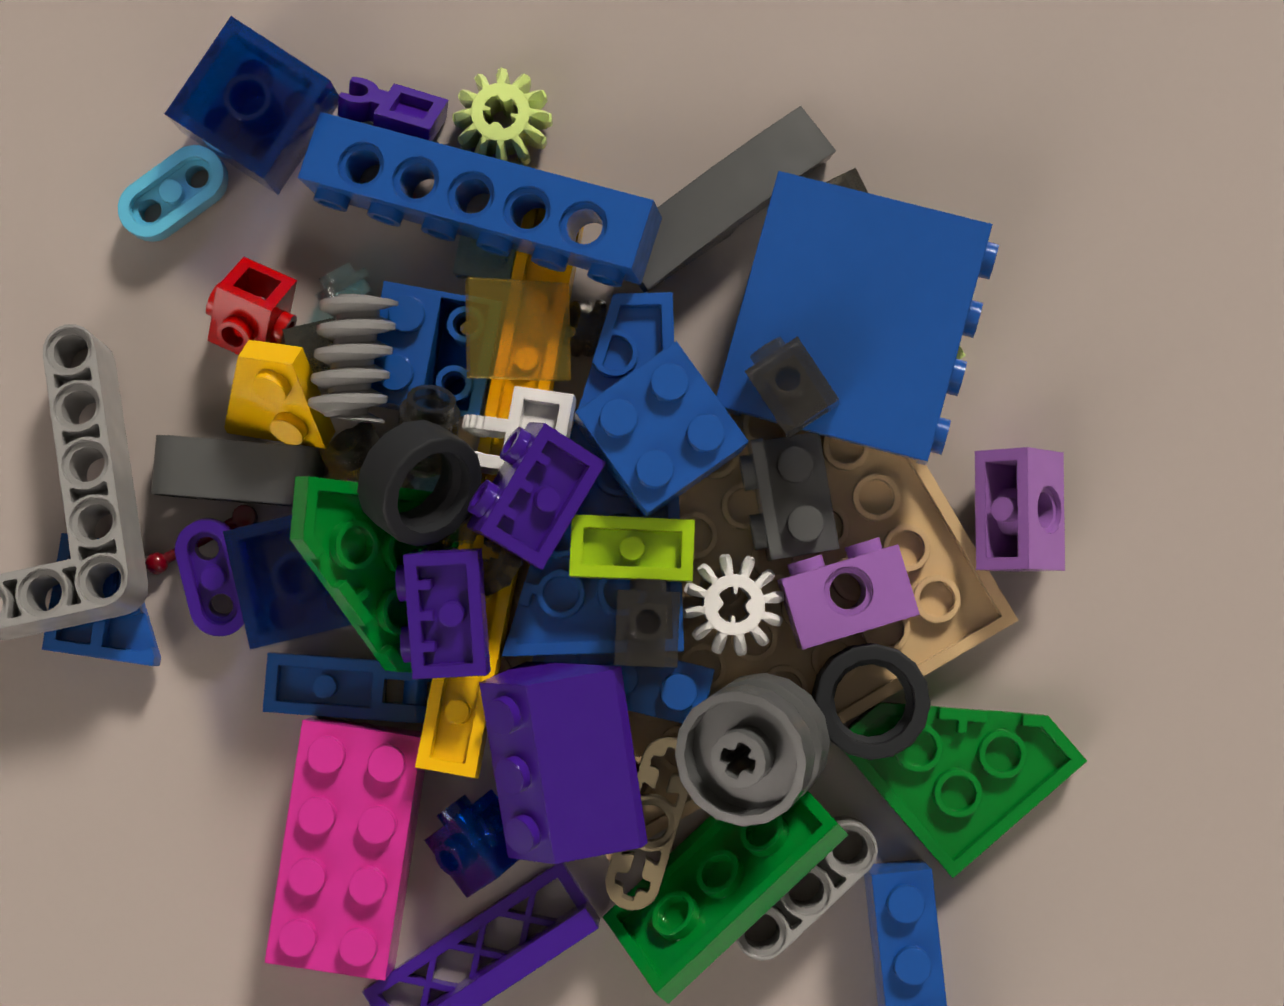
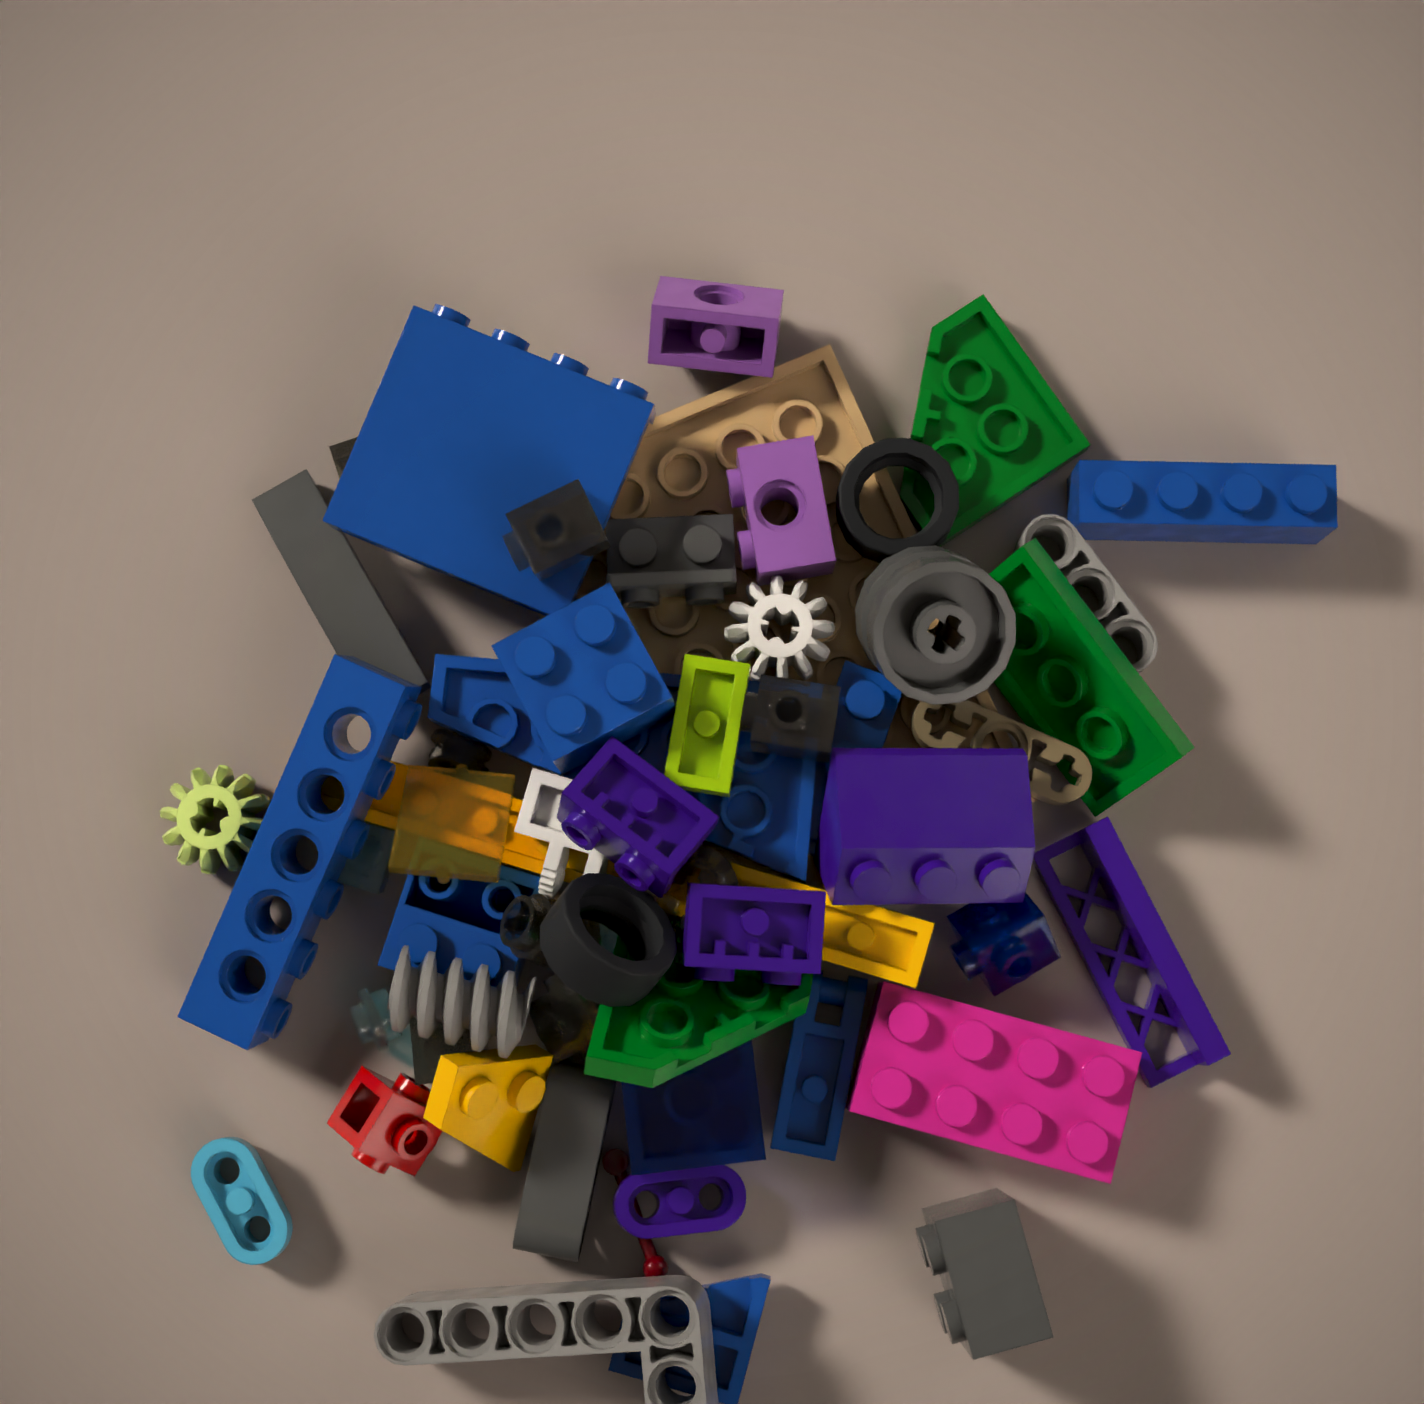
camera: 85 degrees left, 5 degrees down
(167, 861) = (986, 1274): none -> dark grey brick
(253, 104) = (157, 1092): clear blue brick -> none
(395, 110) = (186, 938): dark purple plate -> none

